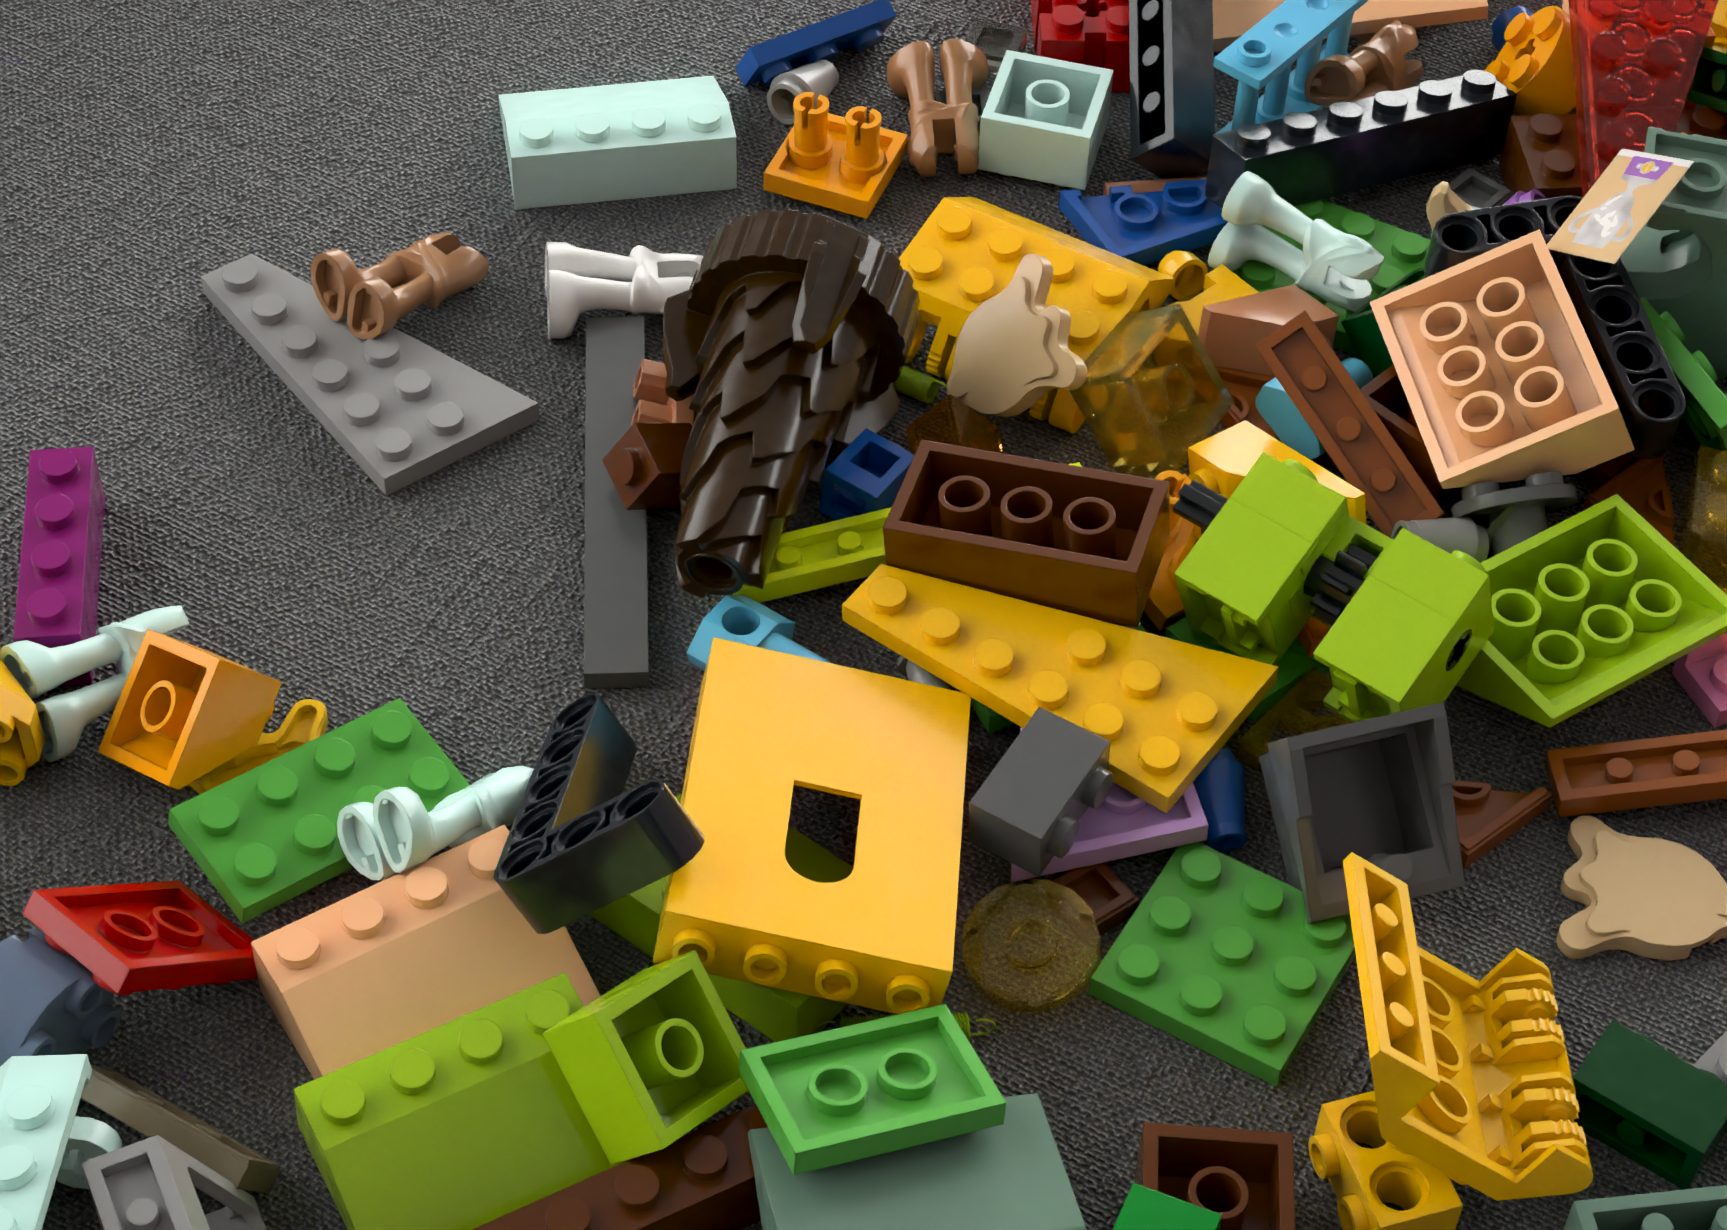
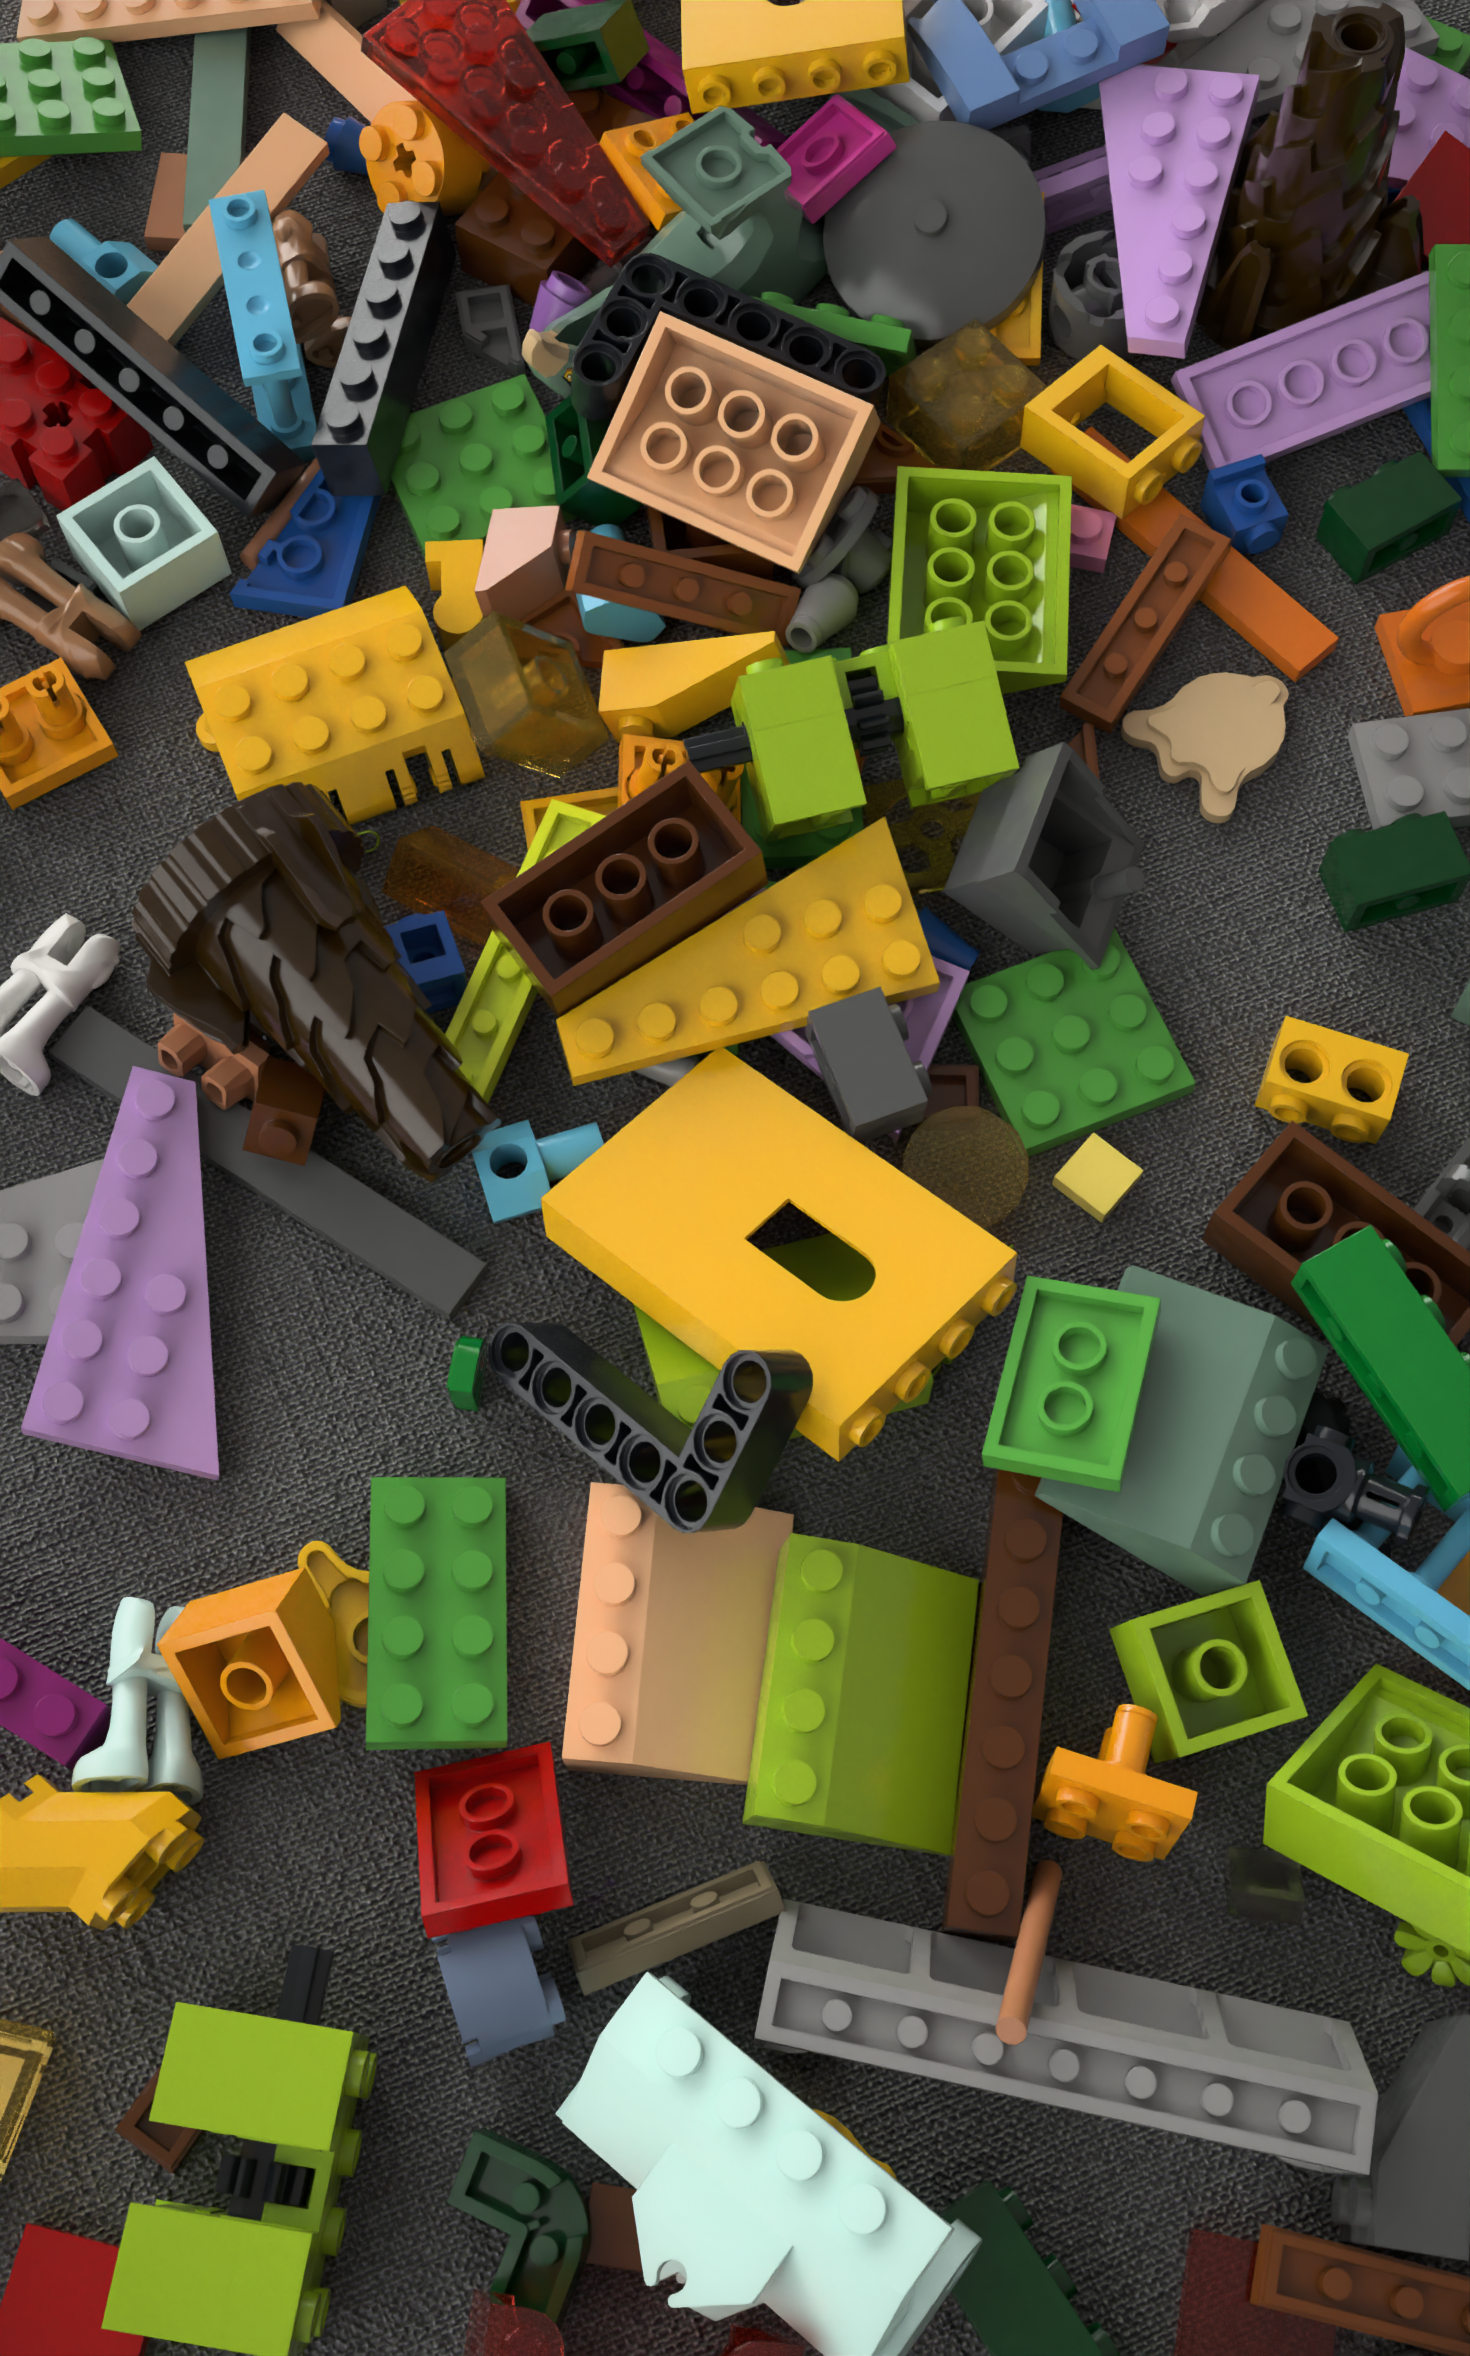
camera: 50 degrees left, 20 degrees up
(401, 834) = (548, 1542): light aqua piece -> none
(419, 482) = (133, 1324): none -> lavender wing
(535, 709) = (467, 1372): none -> green tile
(650, 1057) = (923, 1520): lime brick -> none
(1015, 347) = (409, 763): tan tile -> none
(1120, 1053) = (1097, 1177): none -> light yellow tile
(1187, 271) = (389, 572): yellow hinge -> none
(1331, 261) = (505, 468): light aqua piece -> none
(1463, 1064) = (1300, 964): yellow slope -> none
(1618, 205) = (694, 241): sticker -> none

